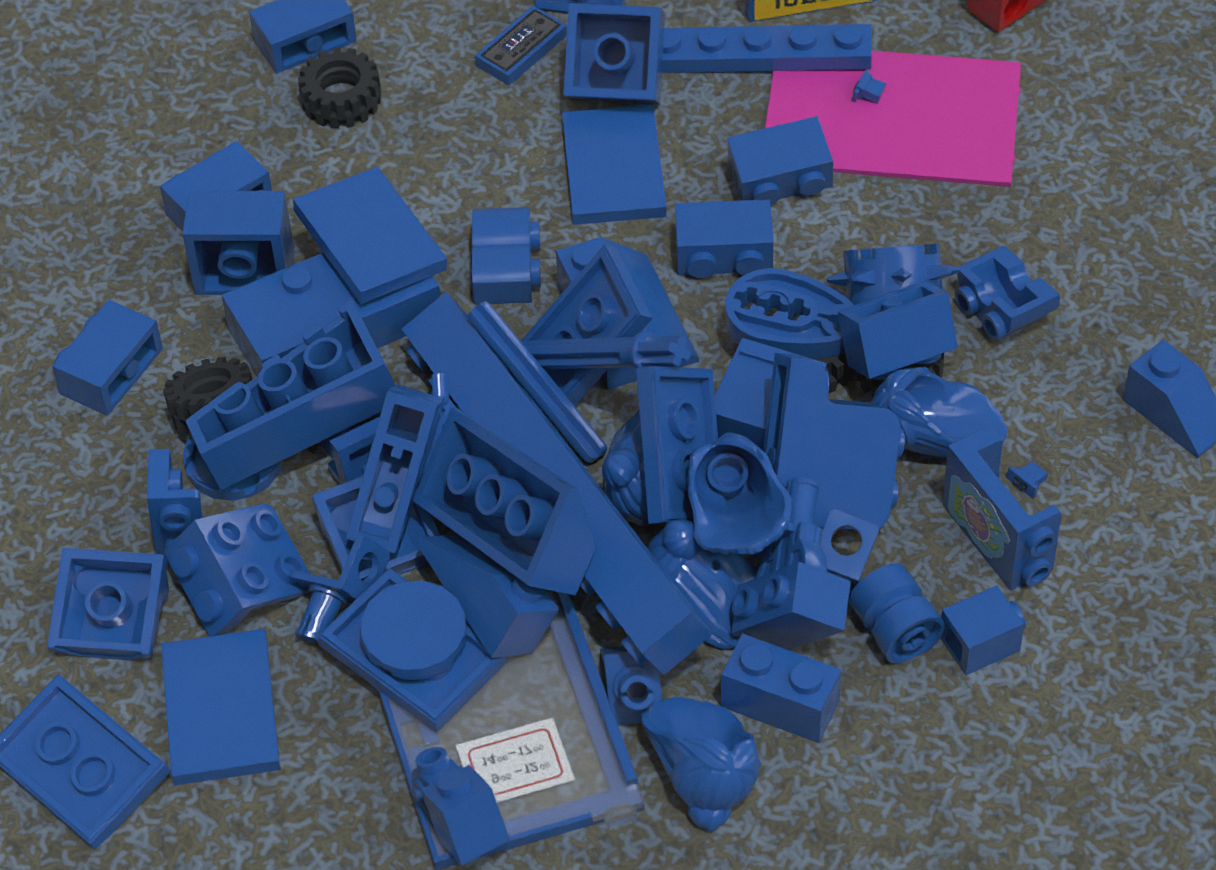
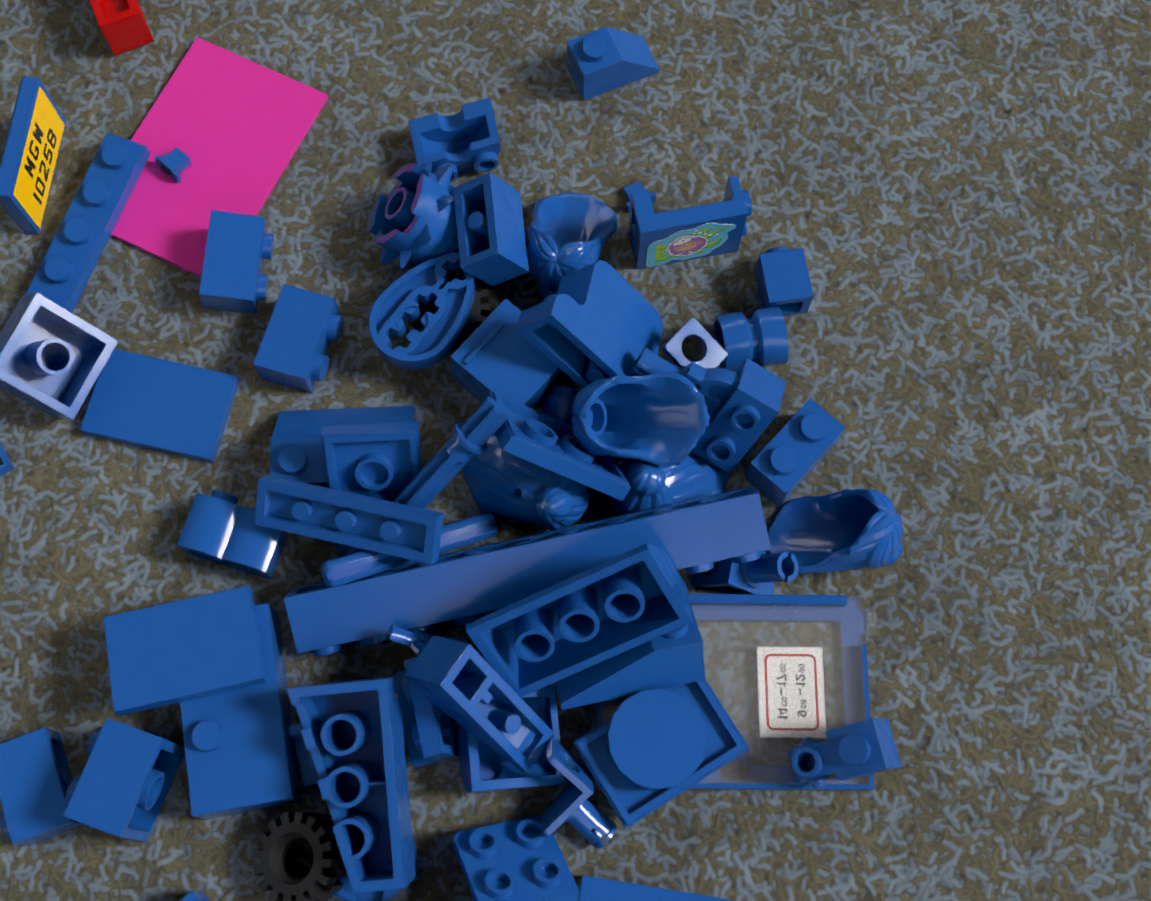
camera: 75 degrees left, 20 degrees up
(538, 309) = (349, 519): none -> blue plate

